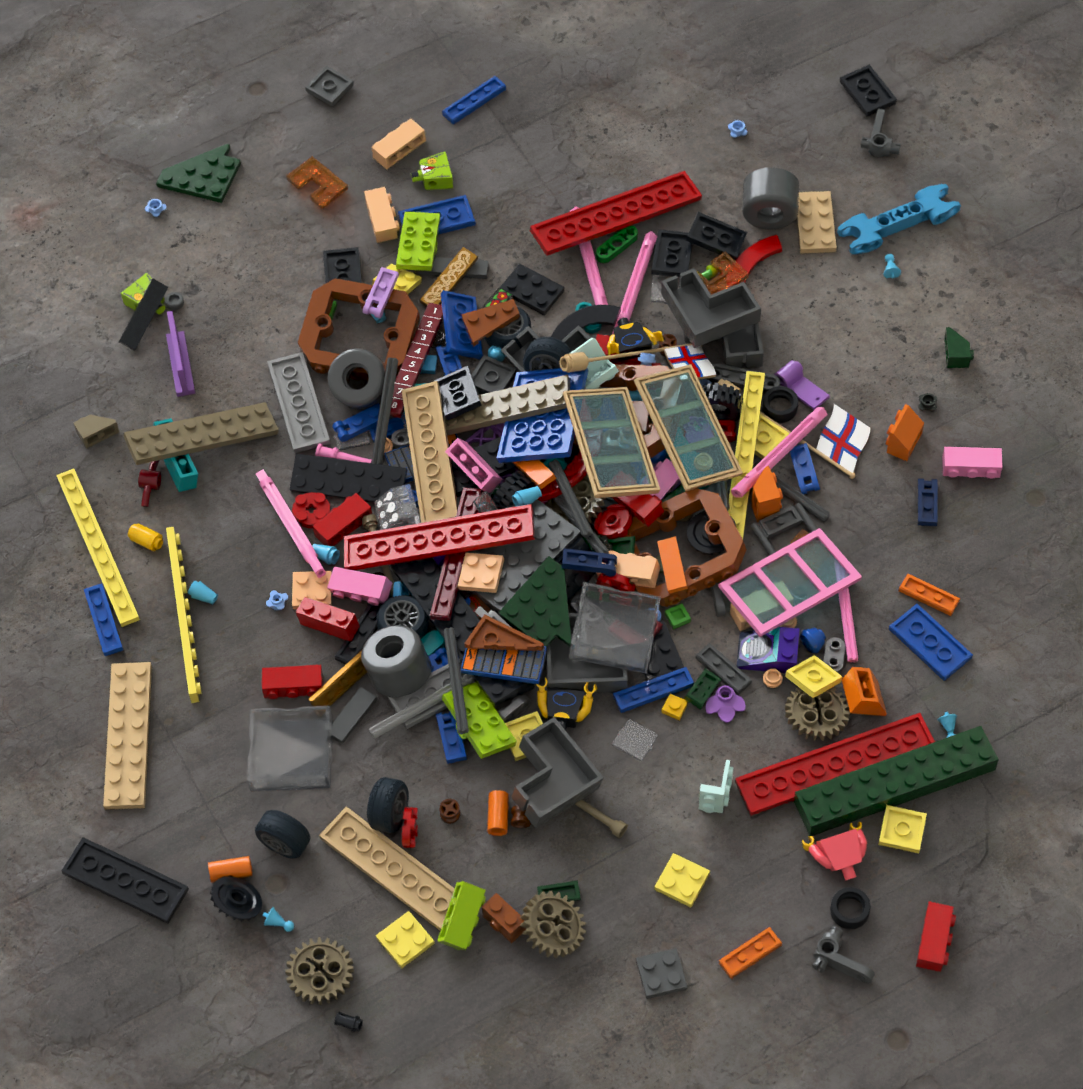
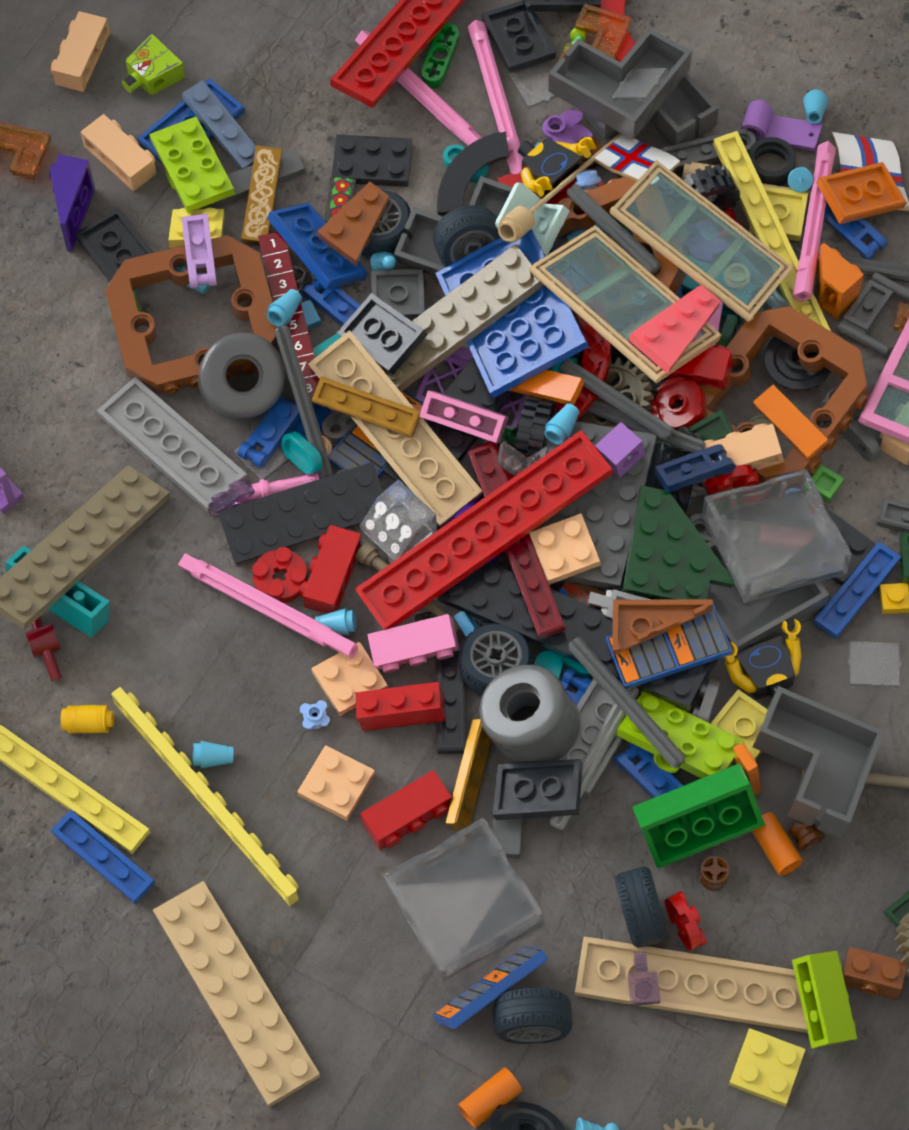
camera: 30 degrees left, 5 degrees up
(264, 645) = (336, 783): none -> light nougat plate
(269, 805) = (490, 987): none -> tile
(309, 447) = (237, 493): none -> clear purple plate
(333, 227) = (73, 193): none -> dark purple slope
(360, 850) = (643, 985): none -> plate
(368, 443) = (301, 453): none -> teal tile
(373, 706) = (538, 789): none -> black plate
(412, 350) = (283, 309): none -> medium azure cone
(419, 432) = (366, 407): none -> pearl gold tile
(452, 224) = (220, 124): none -> sand blue plate
(456, 769) = (698, 815): none -> green brick
(504, 757) = (749, 766): none -> orange tile
(548, 528) = (621, 449): none -> medium lavender piece
(629, 470) = (672, 330): none -> coral wing
(642, 412) = (613, 229): none -> dark grey axle
(666, 325) = (568, 127): none -> medium lavender plate
(716, 314) = (639, 84): none -> clear piece
(788, 422) = (800, 179): none -> medium azure piece
(822, 448) = (861, 192): none -> orange tile
(832, 382) = (815, 104): none -> medium azure cone

